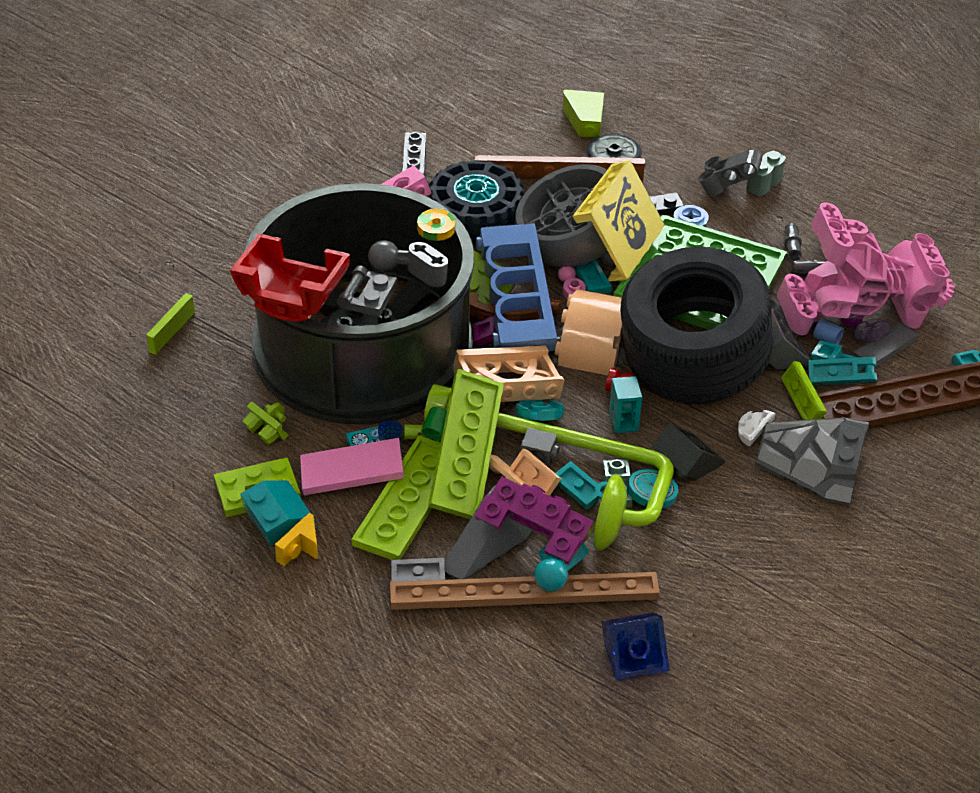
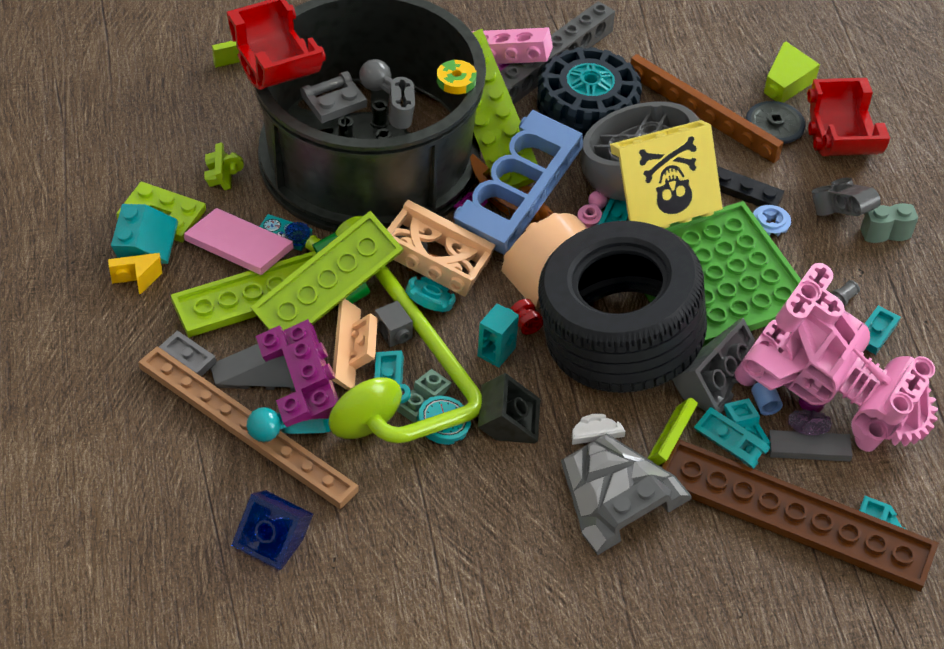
camera: 40 degrees right, 5 degrees up
(661, 126) = (842, 118): none -> red cylinder

